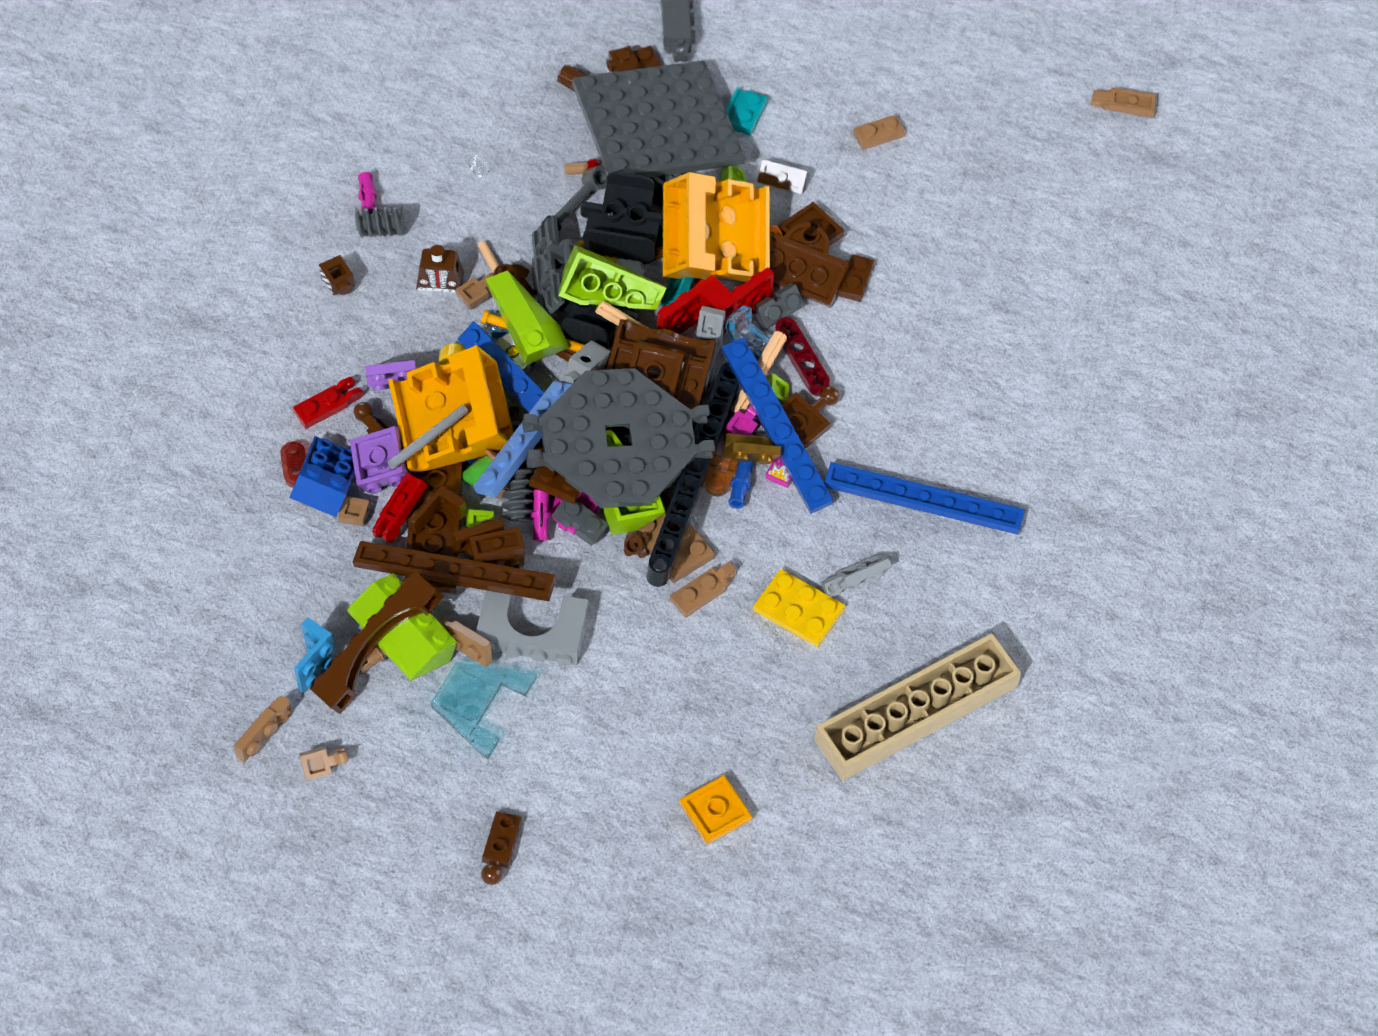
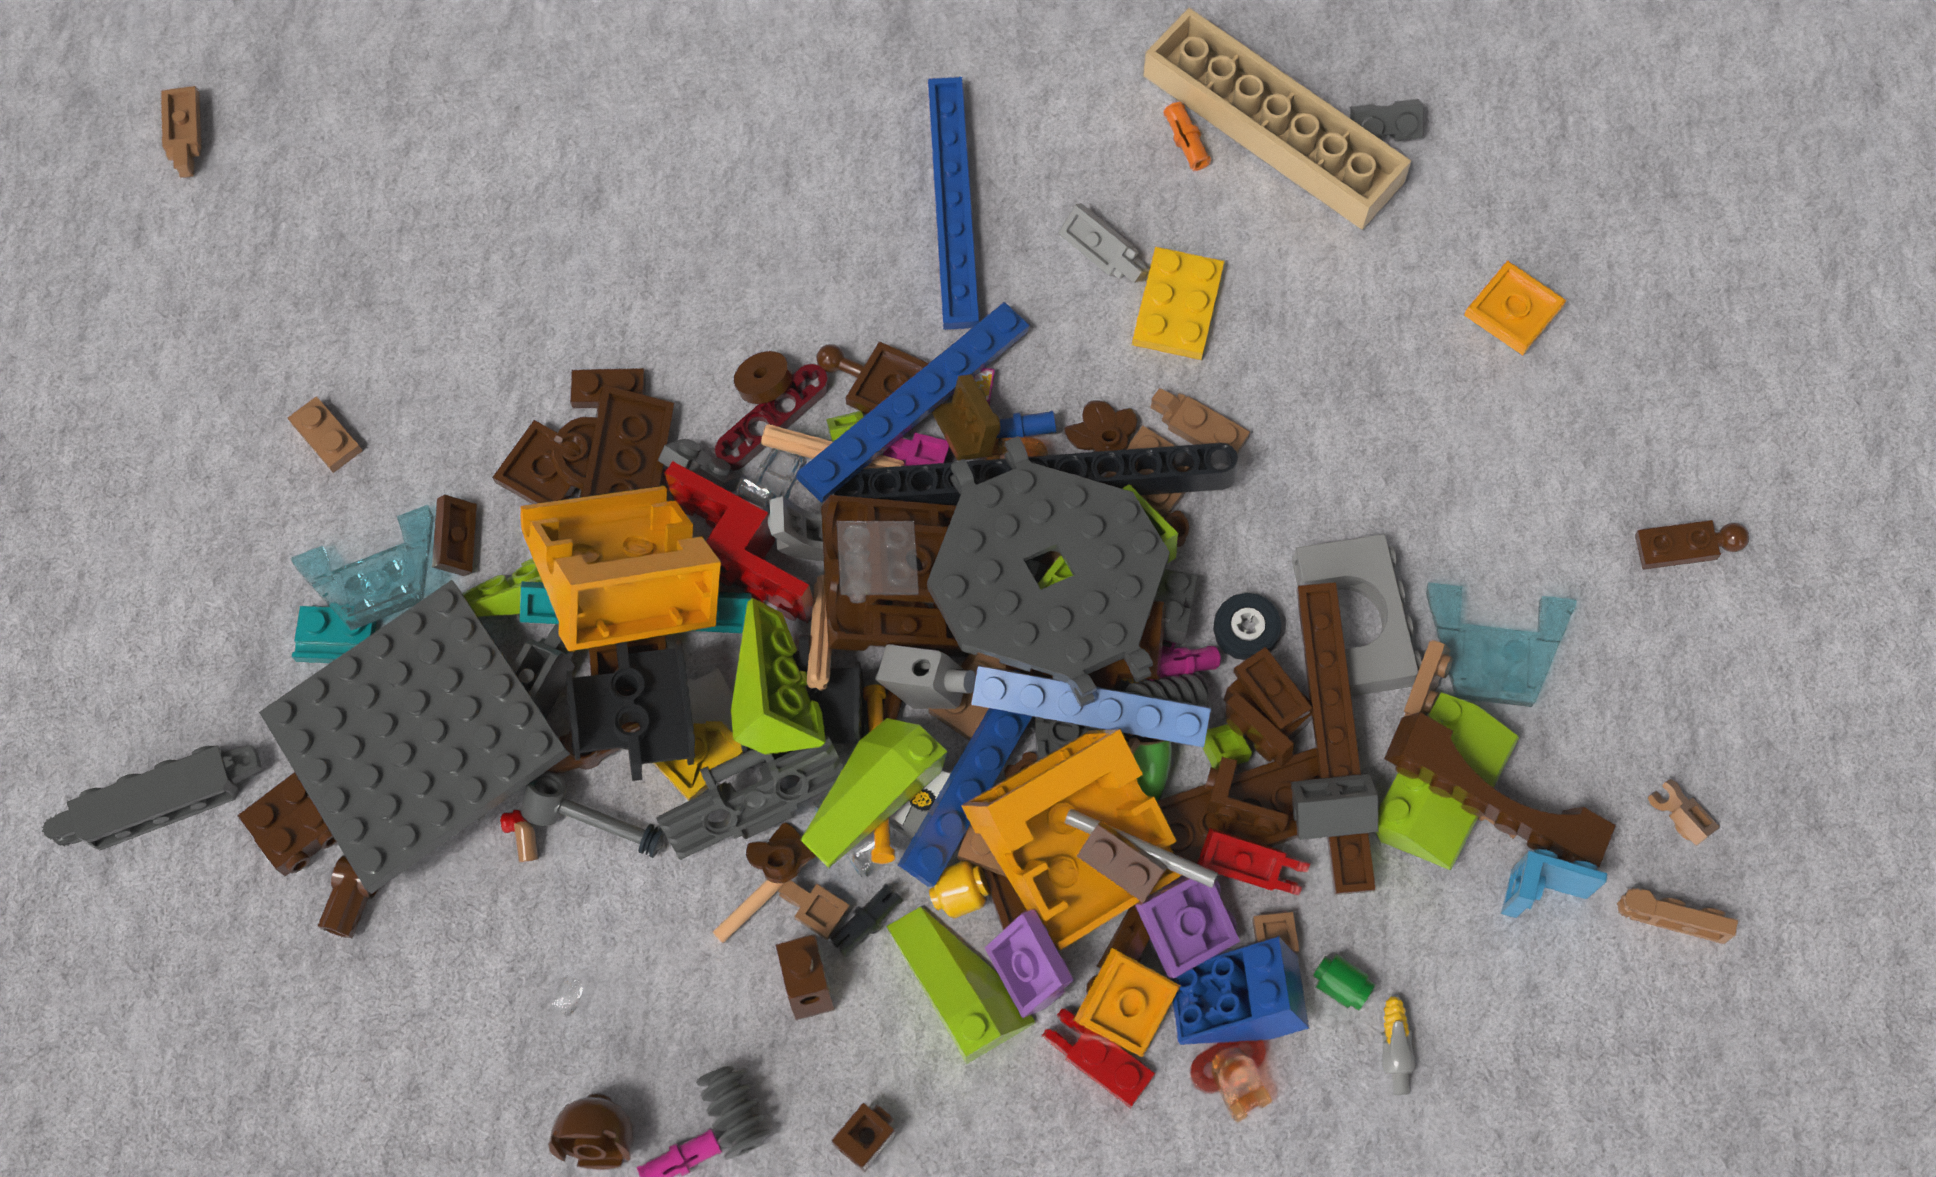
camera: 105 degrees left, 10 degrees up
(260, 550) = (1397, 1048): none -> light grey piece
(282, 456) = (1232, 1073): none -> clear orange plate
(310, 534) = (1343, 982): none -> green brick
(348, 415) = (1126, 1002): none -> light orange plate
(399, 156) = (592, 1132): none -> reddish brown cylinder
(399, 342) = (958, 985): none -> lime wedge
(409, 549) = (1335, 806): none -> dark grey hinge
(421, 424) = (1122, 861): none -> reddish brown plate
(458, 313) = (866, 920): none -> black pin
(561, 557) = (1255, 609): none -> black bush
(659, 345) = (876, 558): none -> clear hinge
(724, 532) = (1100, 426): none -> reddish brown plate
(762, 130) = (379, 582): none -> clear light blue wing
(829, 355) = (763, 377): none -> reddish brown piece
(890, 791) = (1398, 120): none -> dark grey piece
(925, 655) = (1187, 136): none -> orange pin

